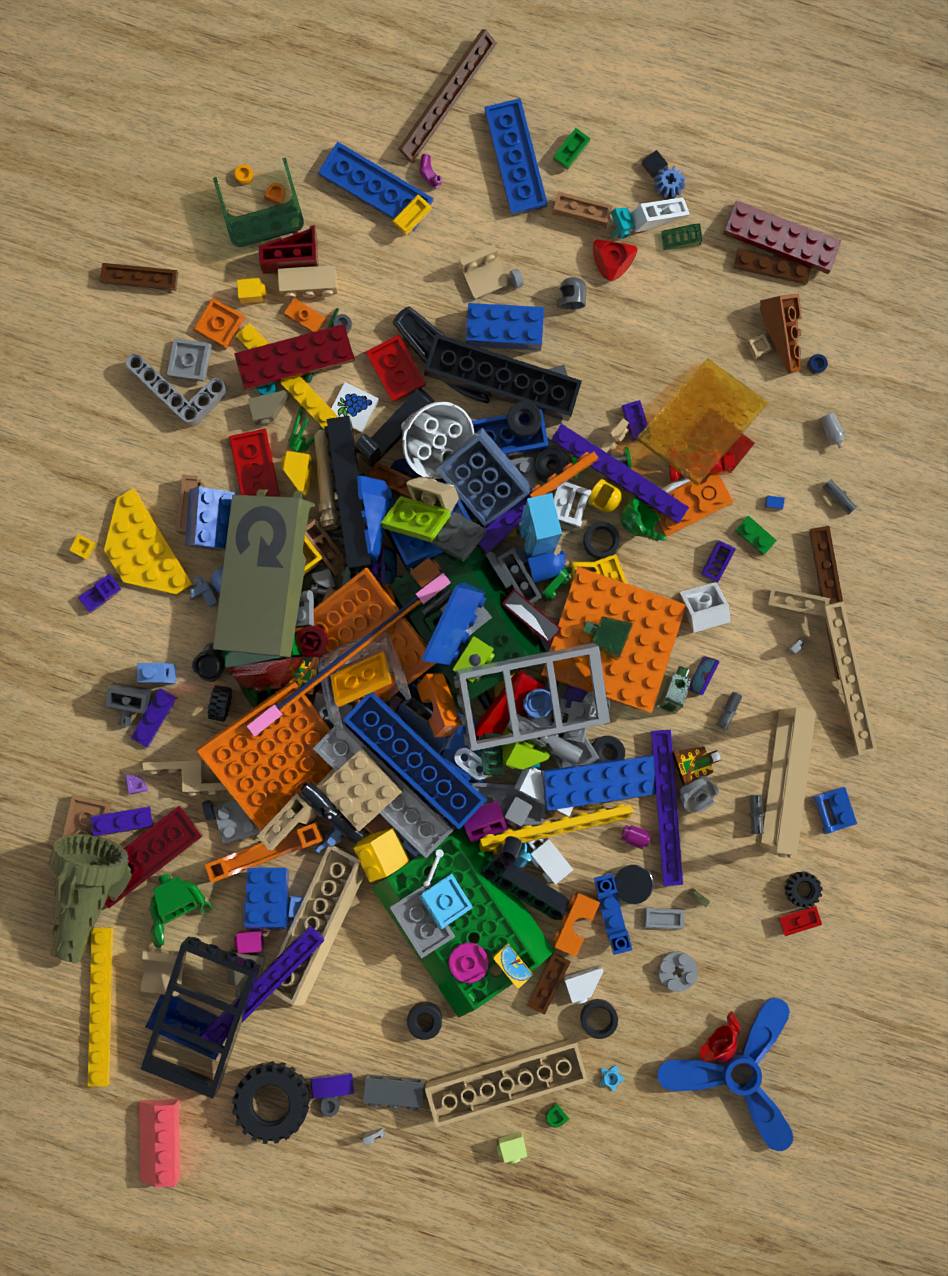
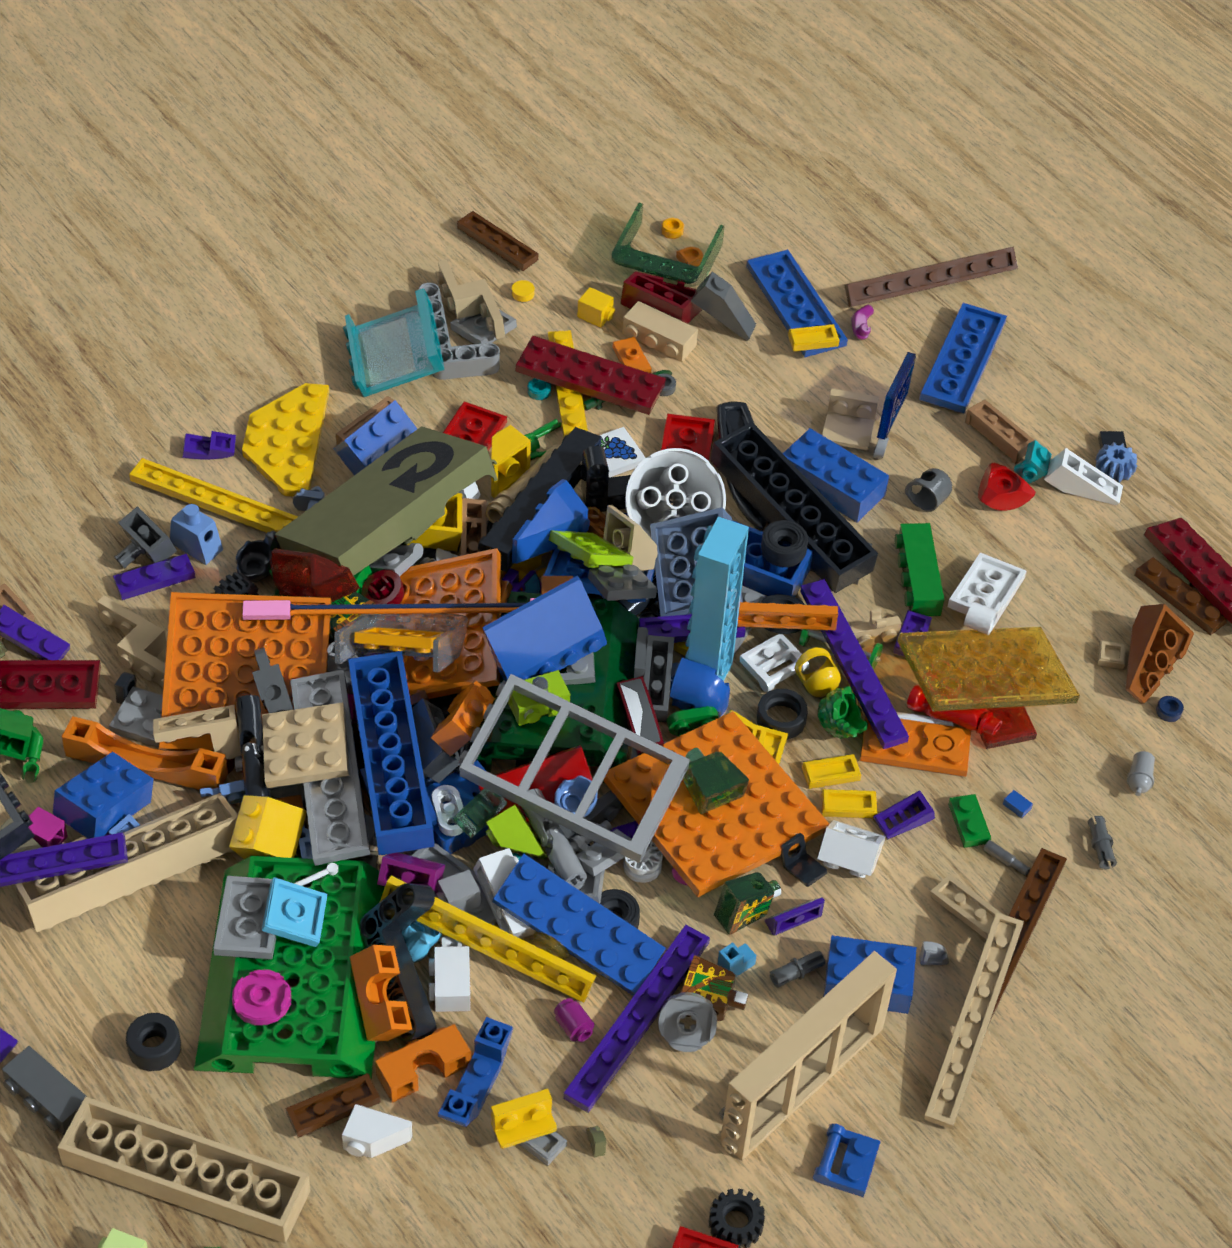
camera: 35 degrees right, 35 degrees down
(82, 546) = (232, 400): yellow plate -> none
(135, 784) = (75, 620): medium lavender tile -> none
(143, 633) = (209, 497): none -> yellow plate
(150, 427) = (394, 347): none -> panel
(167, 349) = (470, 299): none -> tan bracket
(190, 308) = (523, 291): none -> yellow tile
(219, 323) = (540, 316): orange tile -> none
(267, 407) = (526, 399): dark tan slope -> none
(307, 762) = (271, 684): none -> dark grey piece
(337, 232) = (723, 303): none -> dark grey slope
(505, 234) = (896, 395): none -> clear blue tile
(512, 965) = (308, 1033): slope -> none
(538, 919) = (372, 973): none -> orange arch
(571, 148) = (1029, 382): green plate -> none
(599, 1034) = (352, 1165): black tyre -> none
(607, 365) = (920, 569): none -> green brick
(634, 884) = (528, 1068): black tile -> none
(655, 558) = (831, 771): none -> yellow tile
(659, 922) = (523, 1118): none -> yellow bracket
(676, 382) = (983, 608): none -> white hinge
(680, 574) = (848, 803): none -> yellow tile
(683, 243) = (1107, 517): clear green slope -> none
(687, 640) = (800, 863): none -> black bracket
(688, 975) = (501, 1188): light grey plate -> none
(694, 732) = (736, 958): none -> dark azure piece
(773, 687) = (848, 953): none -> blue piece
(790, 546) = (1006, 857): none -> flat silver pin

